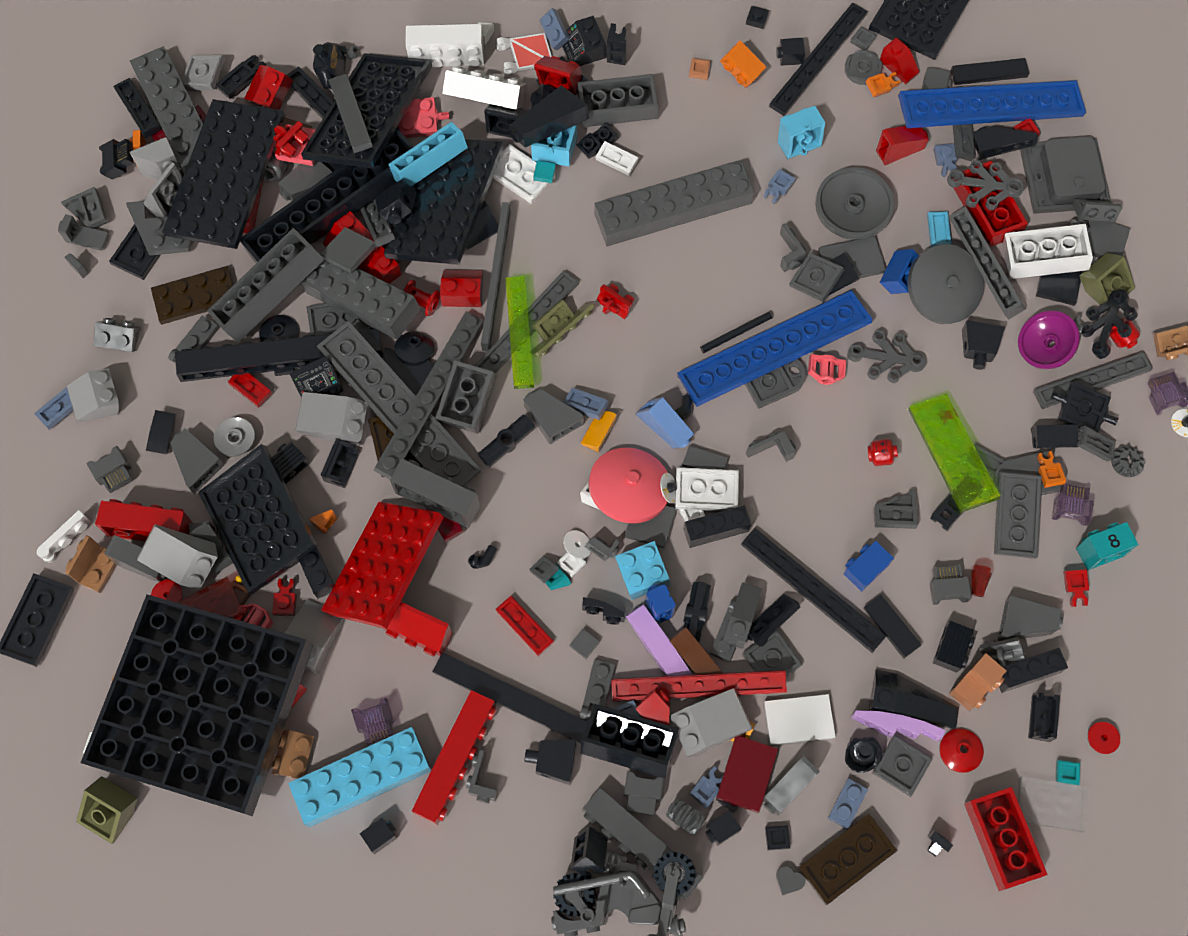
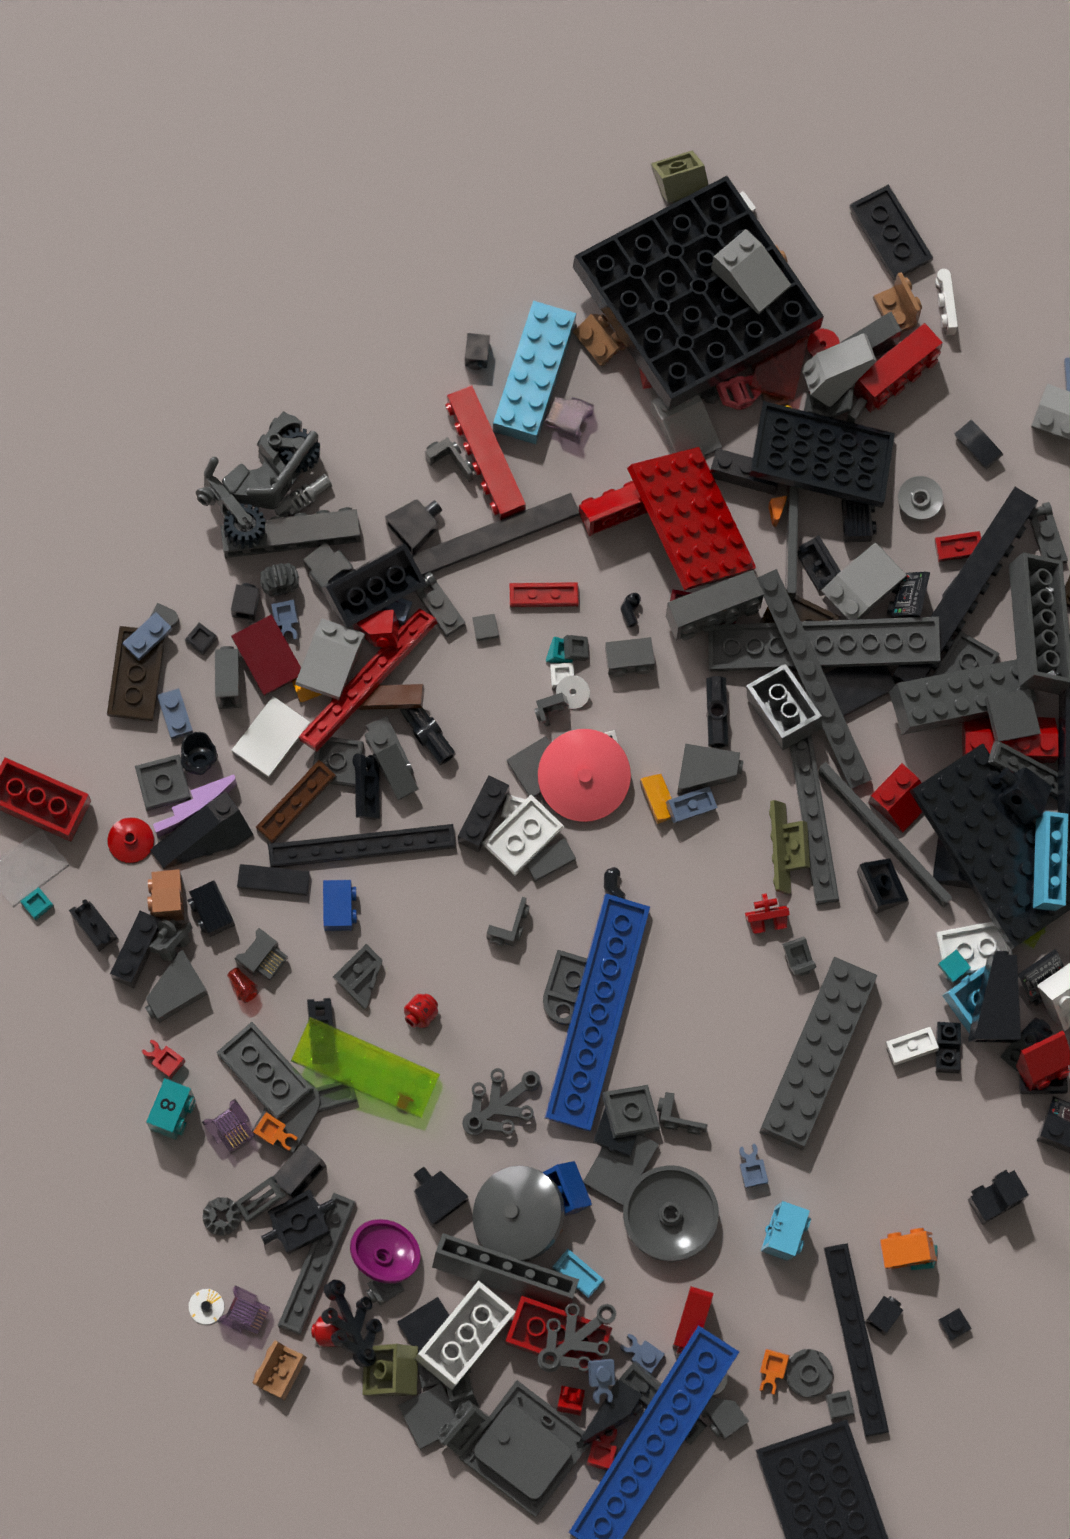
camera: 130 degrees right, 5 degrees up
(111, 470) = (976, 381): dark grey piece -> none
(151, 671) = (750, 271): none -> light grey slope
(195, 460) = (928, 451): dark grey slope -> none
(285, 601) = (736, 429): red plate -> none
(287, 325) = (987, 620): black dish -> none
(342, 487) = (791, 541): none -> dark grey tile
(414, 347) = (865, 711): black dish -> none
(423, 298) = (917, 751): red hose -> none
(518, 527) = (629, 656): none -> dark grey brick
(519, 332) = (809, 807): clear neon green plate -> none
(531, 253) = (881, 884): none -> black slope
(589, 852) = (319, 485): black hinge -> none
(610, 613) = (491, 665): black slope -> none
(616, 46) = (1035, 1146): black hinge -> none
(619, 100) = (971, 1097): dark grey brick -> none
(624, 260) = (799, 956): none -> dark grey bracket
(642, 569) = (501, 720): medium azure brick -> none
(657, 642) = (435, 679): lavender slope -> none
(660, 603) = (460, 705): blue brick -> none
(661, 44) = (999, 1197): none -> black brick
(665, 422) = (613, 852): medium blue slope -> none
(668, 487) = (552, 802): piece -> none
(699, 68) = (945, 1214): nougat tile -> none
(735, 332) = (644, 995): black bar -> none
(816, 874) = (147, 636): none -> sand blue plate
(827, 364) = (546, 1042): coral piece -> none
(827, 658) = (296, 801): none -> reddish brown tile
(899, 59) = (780, 1409): red slope -> none
(938, 843) = (82, 751): black tile -> none
(989, 71) = (695, 1491): black tile -> none
(992, 152) = (600, 1376): none -> sand blue plate
(1015, 170) = (570, 1400): none -> red tile
(1104, 738) = (34, 957): red piece -> none

